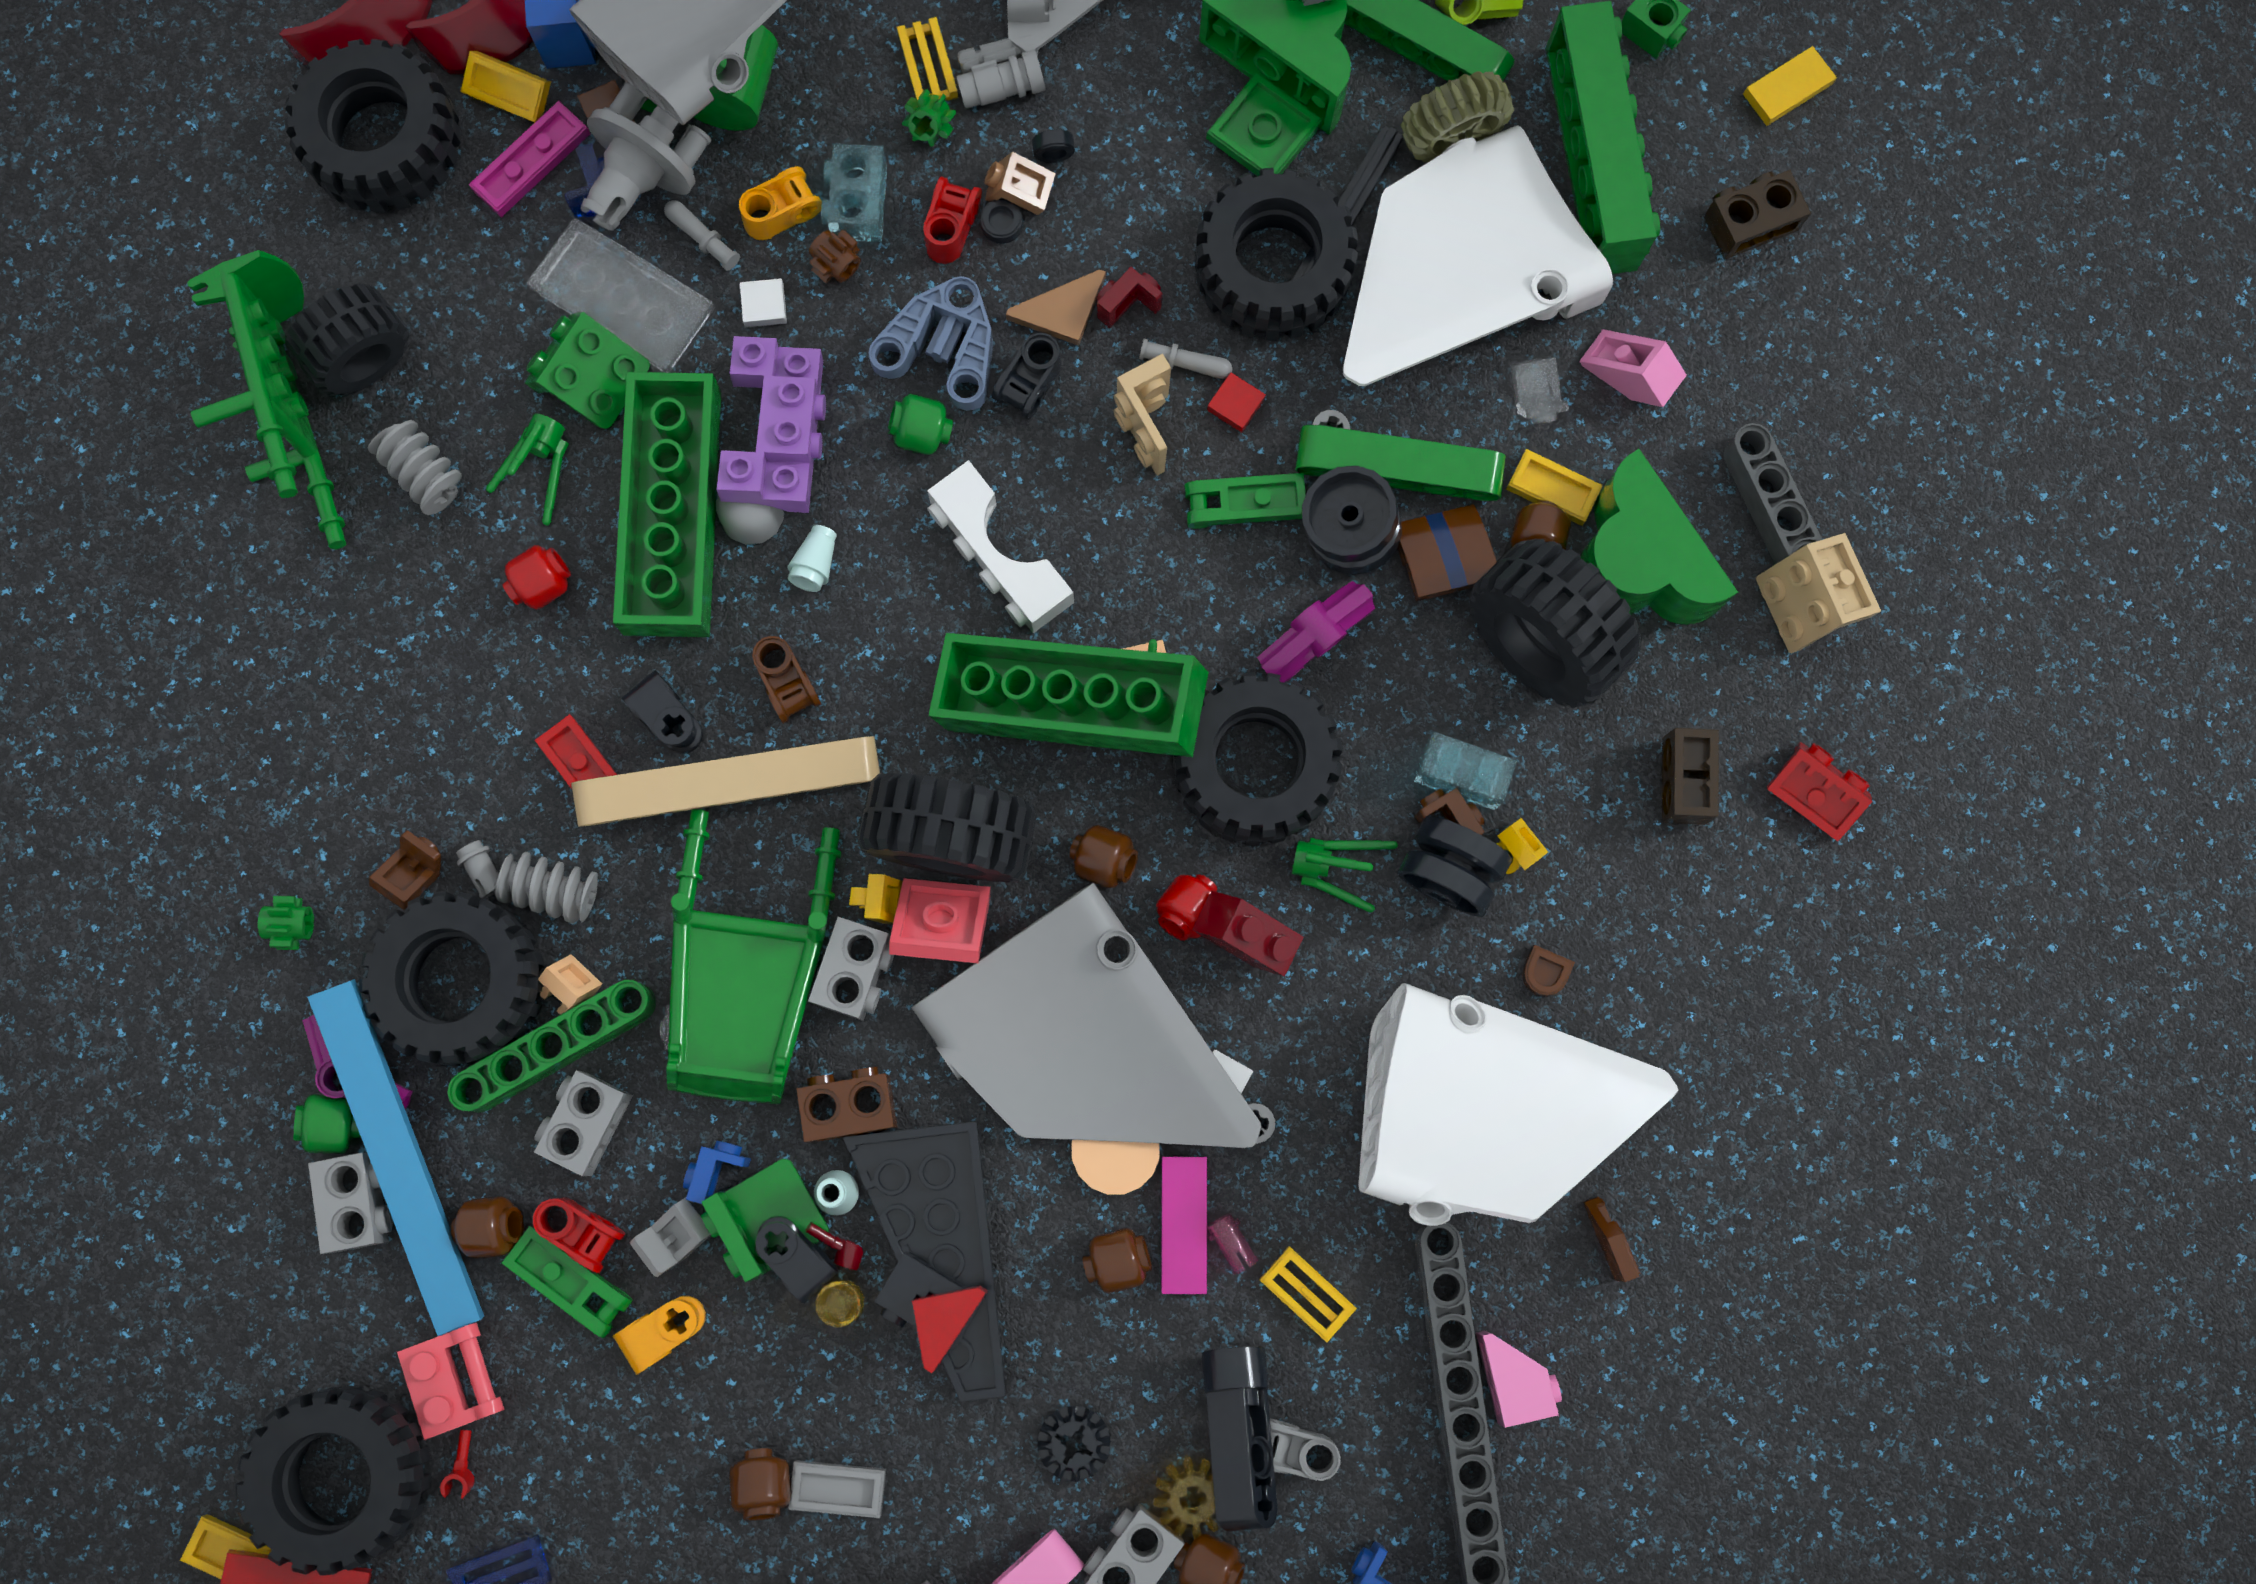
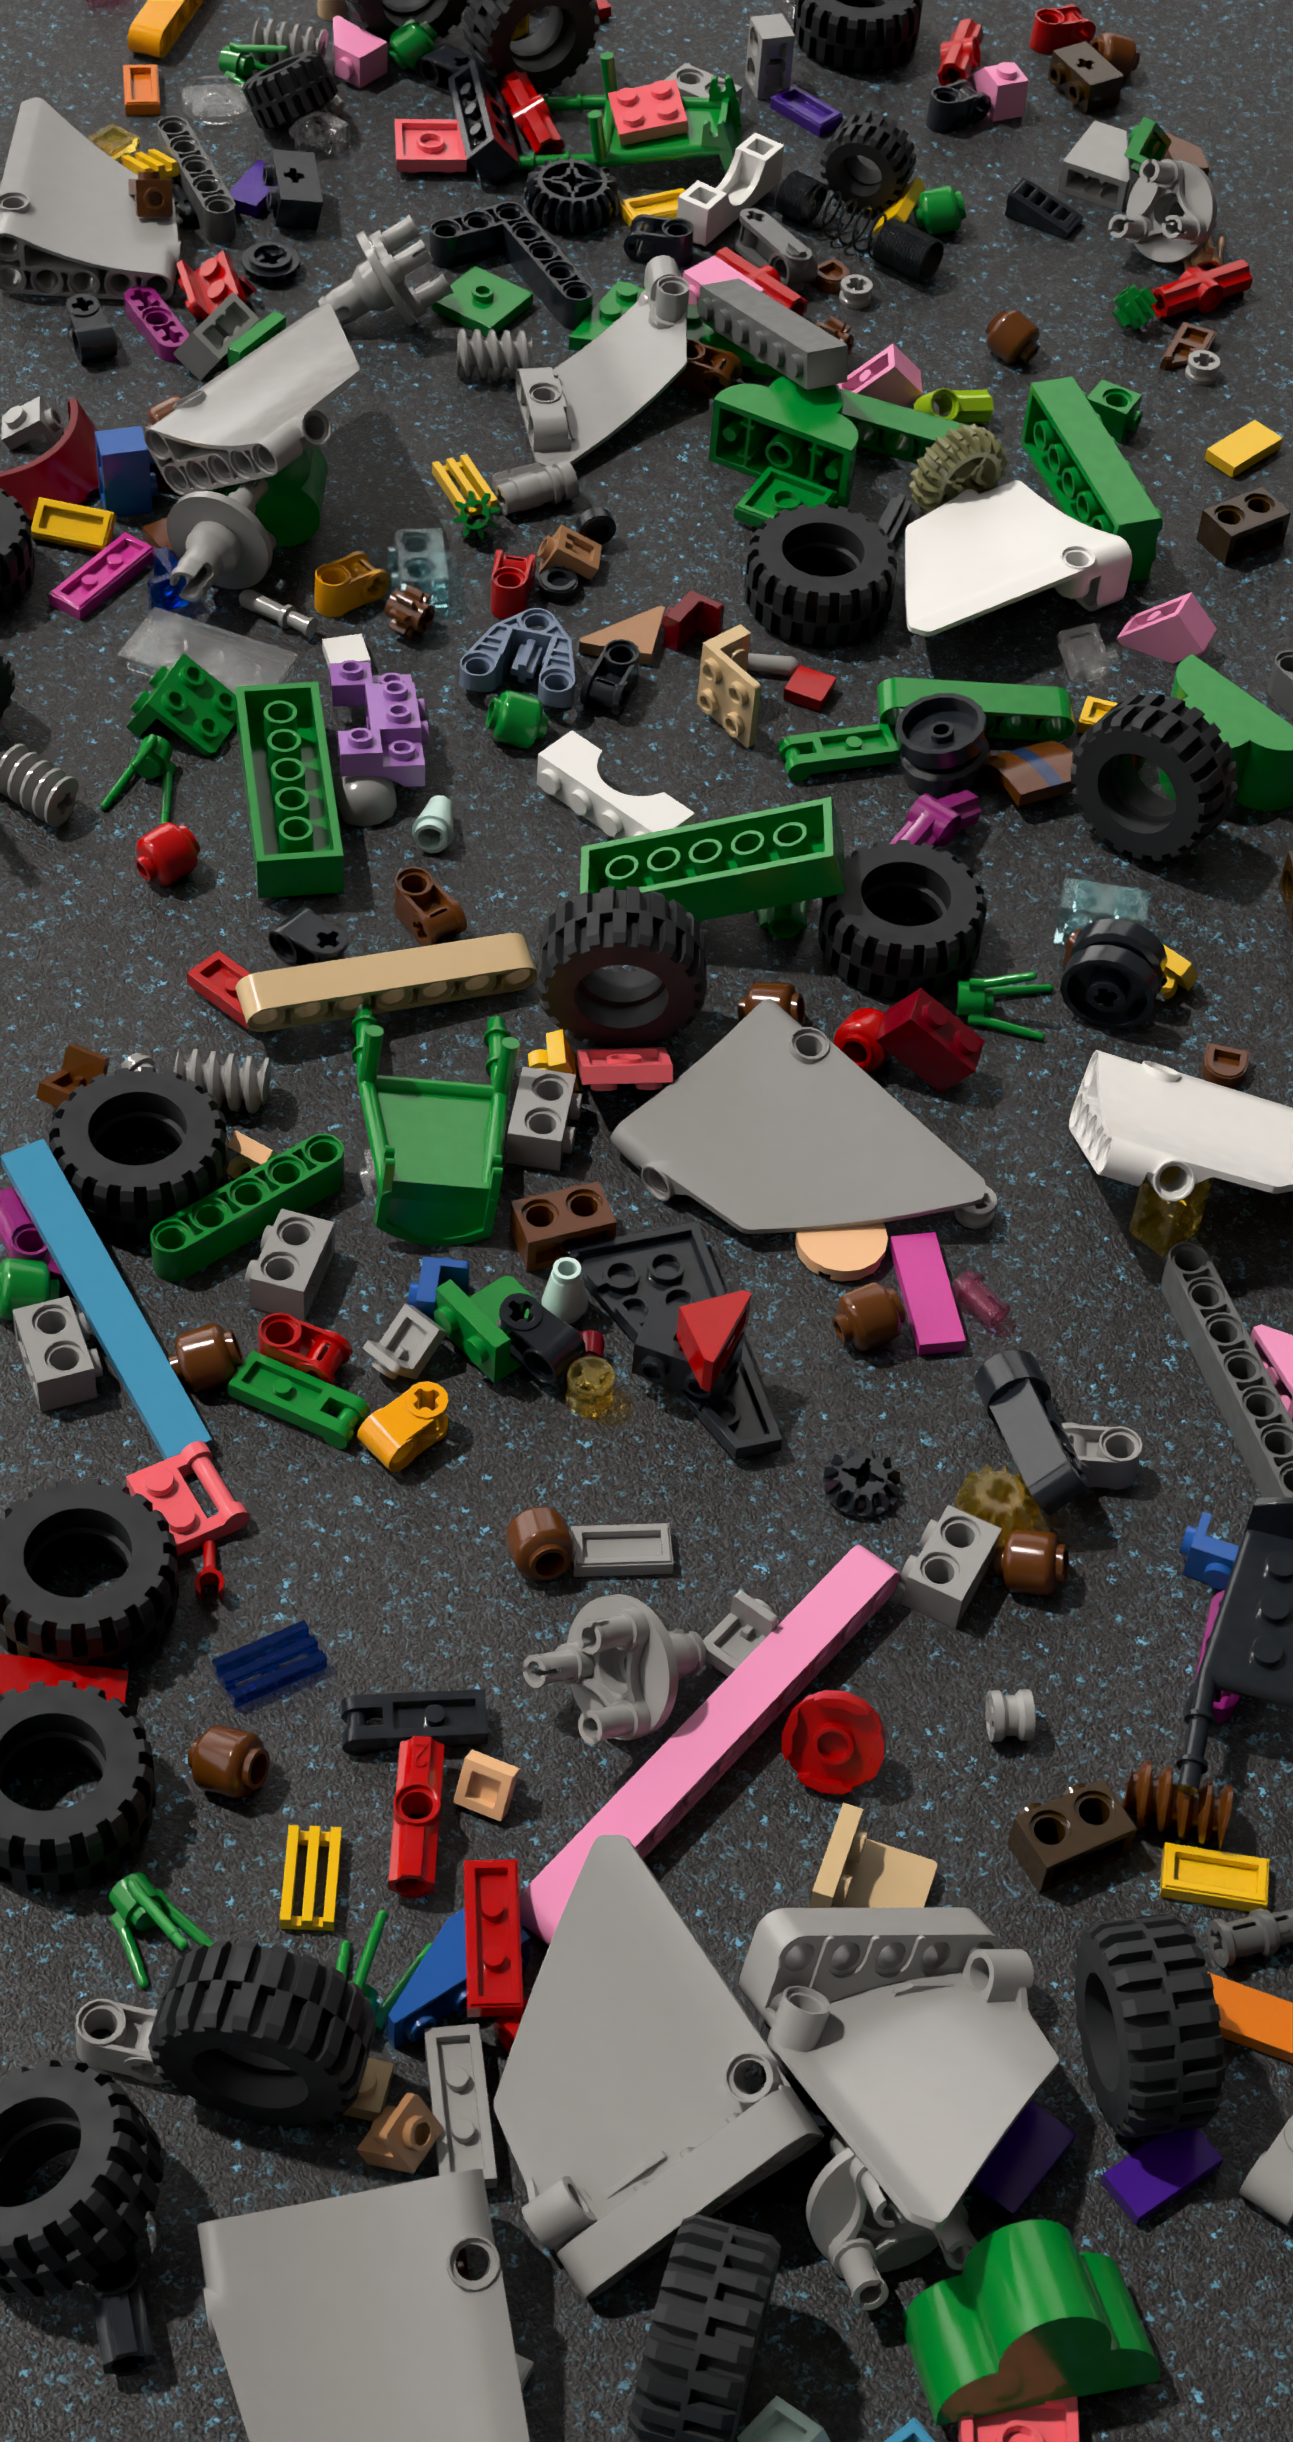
camera: 10 degrees left, 30 degrees down
(1336, 1320) = (1063, 1341): yellow tile -> none

